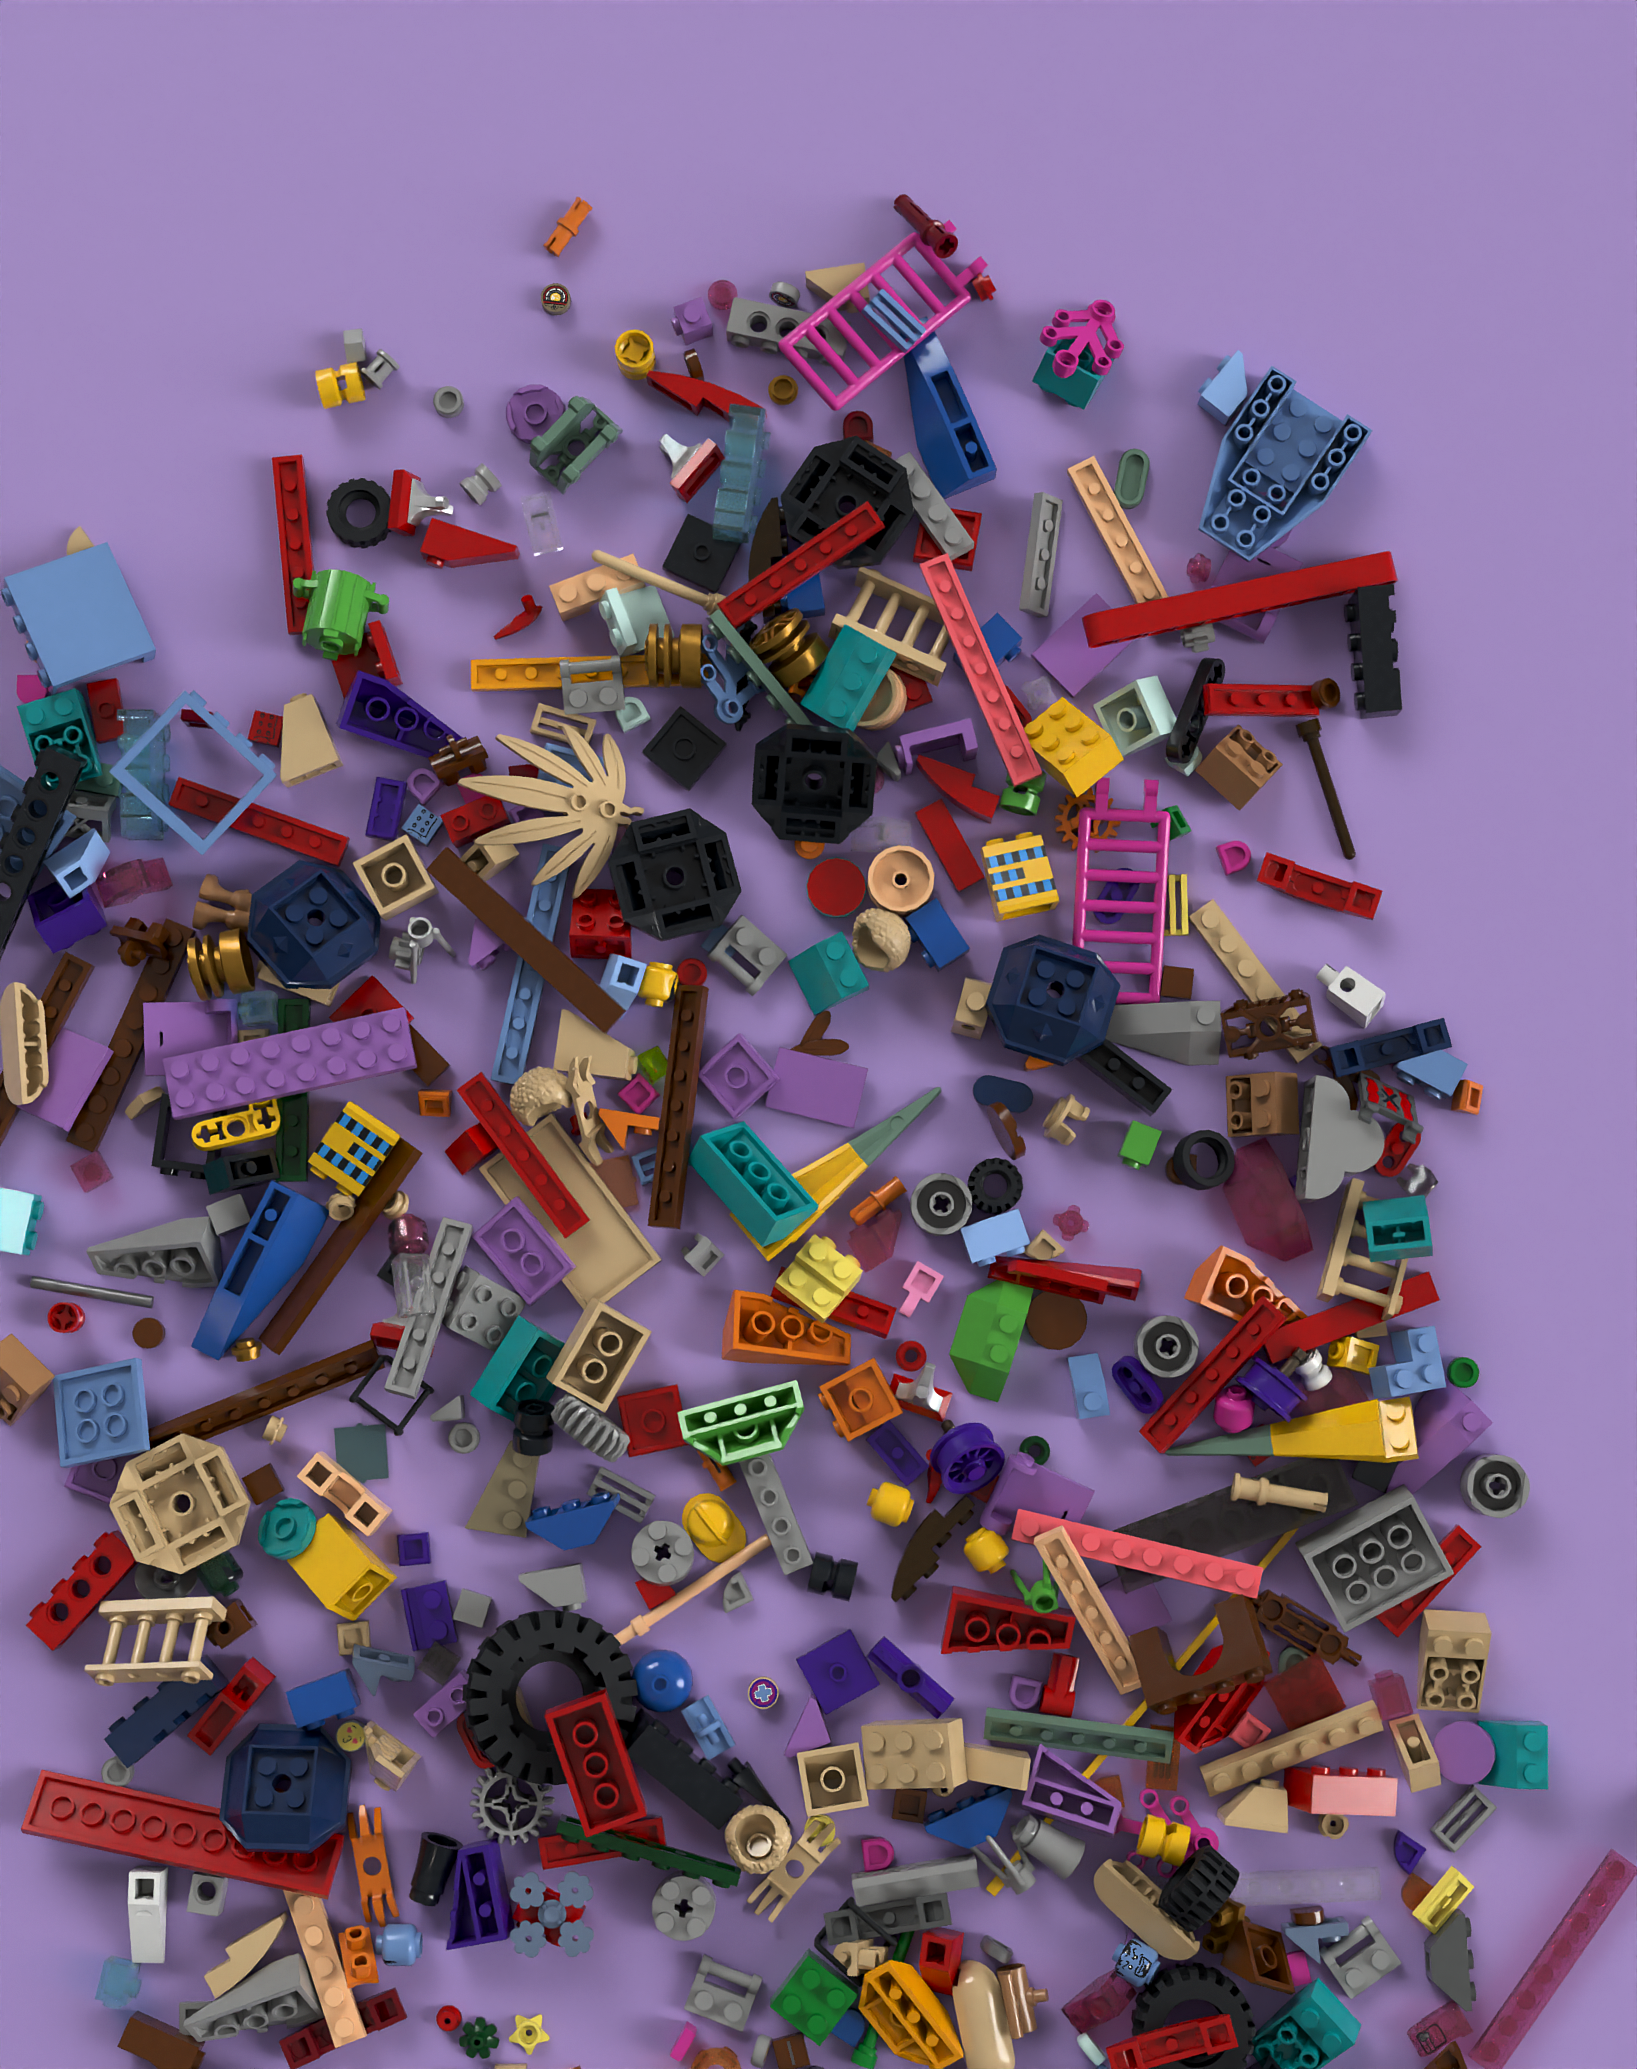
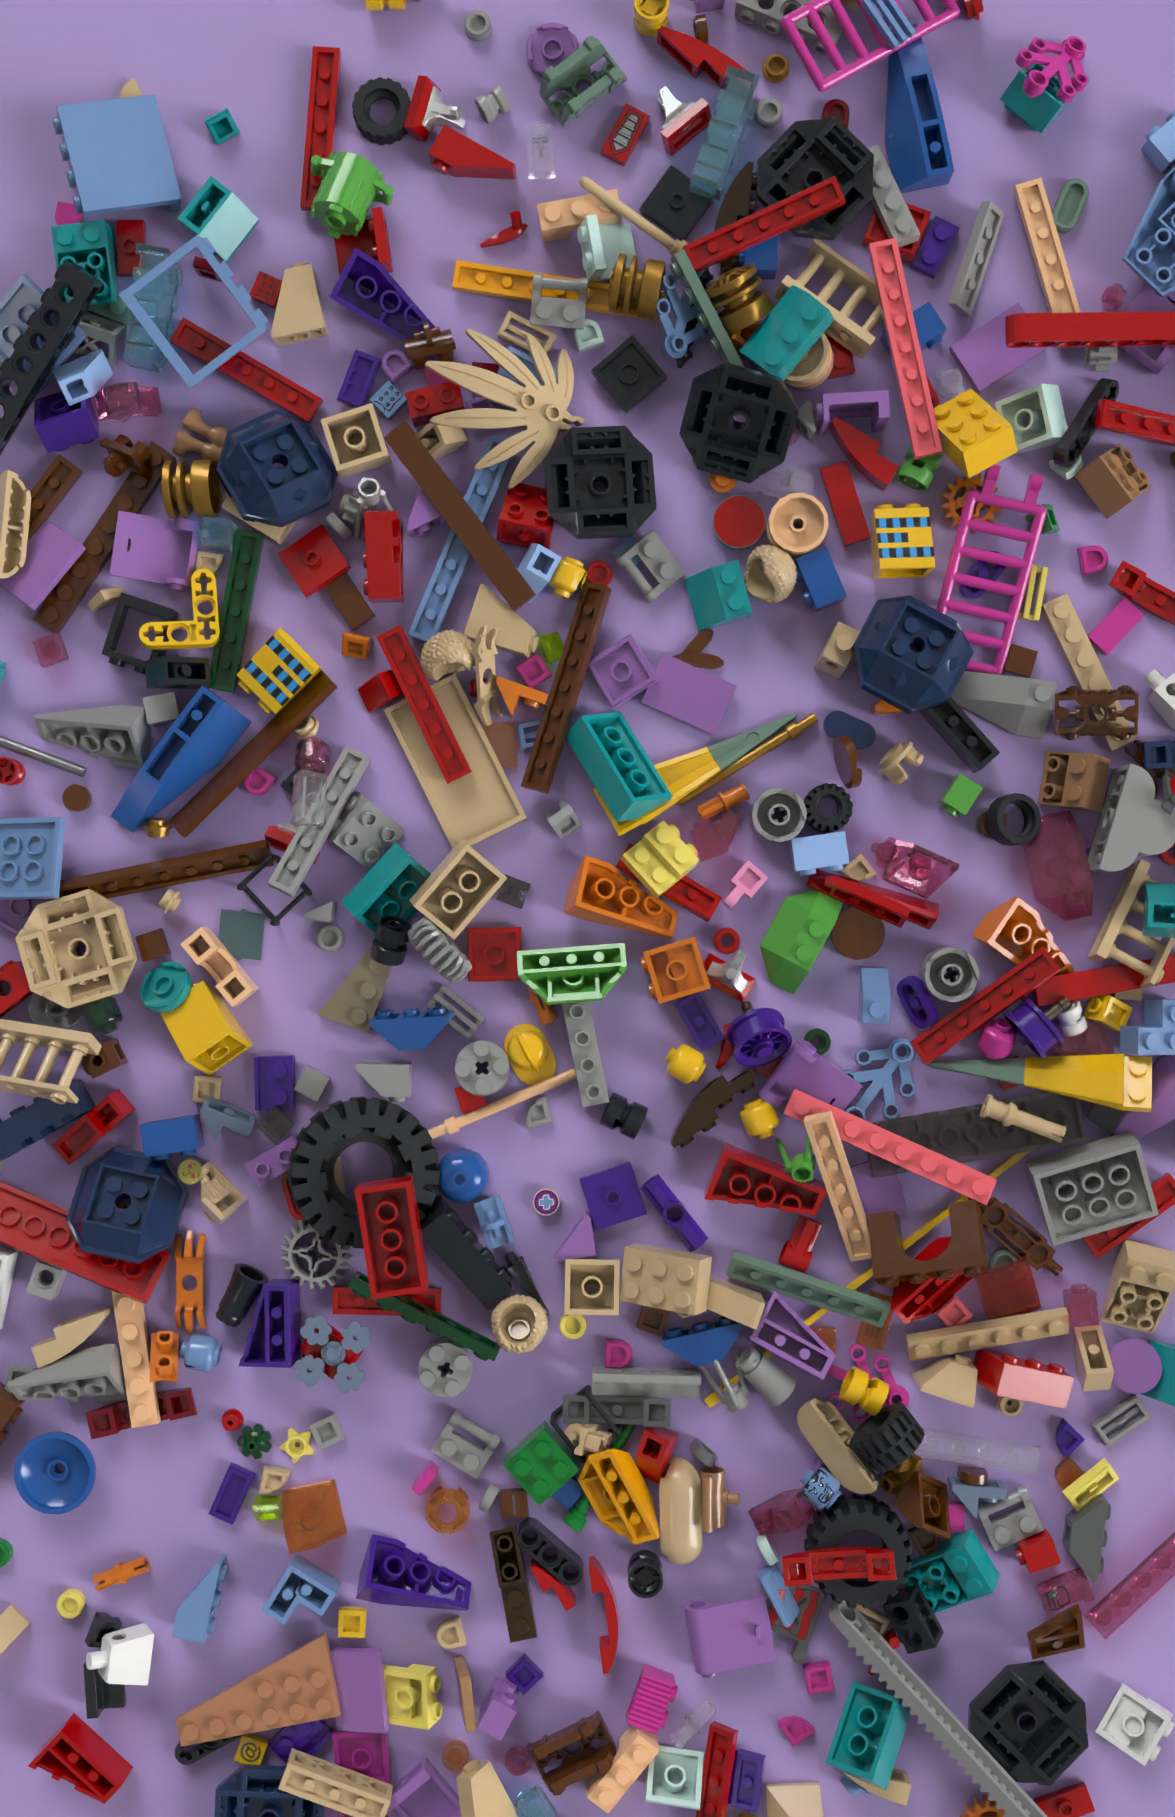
camera: 10 degrees right, 5 degrees up
(186, 561) = (221, 126): none -> teal slope
(200, 663) = (219, 217): none -> slope
(289, 1063) = (235, 586): medium lavender plate -> none
(340, 1206) = (259, 720): tan plate -> none
(352, 1276) = (259, 782): none -> dark pink tile
(392, 974) = (338, 526): none -> light grey tile
(414, 1549) = (271, 1024): dark purple tile -> none
(448, 1000) = (383, 556): none -> red wedge
(523, 1251) = (409, 788): medium lavender tile -> none
(560, 2009) = (327, 1431): none -> light grey tile
(631, 490) = (625, 134): none -> tile
(661, 1346) = (513, 892): none -> clear smoke tile
(784, 438) = (768, 113): none -> light grey tile
(787, 1885) = (534, 1364): tan piece -> none
(938, 1108) = (791, 732): none -> pearl gold bar
(993, 549) = (934, 247): none -> dark purple plate
(1024, 1692) = (768, 1243): medium lavender tile -> none
(1107, 1235) = (917, 869): none -> clear pink slope
(1116, 1477) = (883, 1076): none -> medium blue plant
(1268, 2002) = (924, 1541): none -> reddish brown tile
(1273, 925) = (1115, 626): none -> dark pink tile
(1398, 1990) = (1037, 1552): none -> red brick

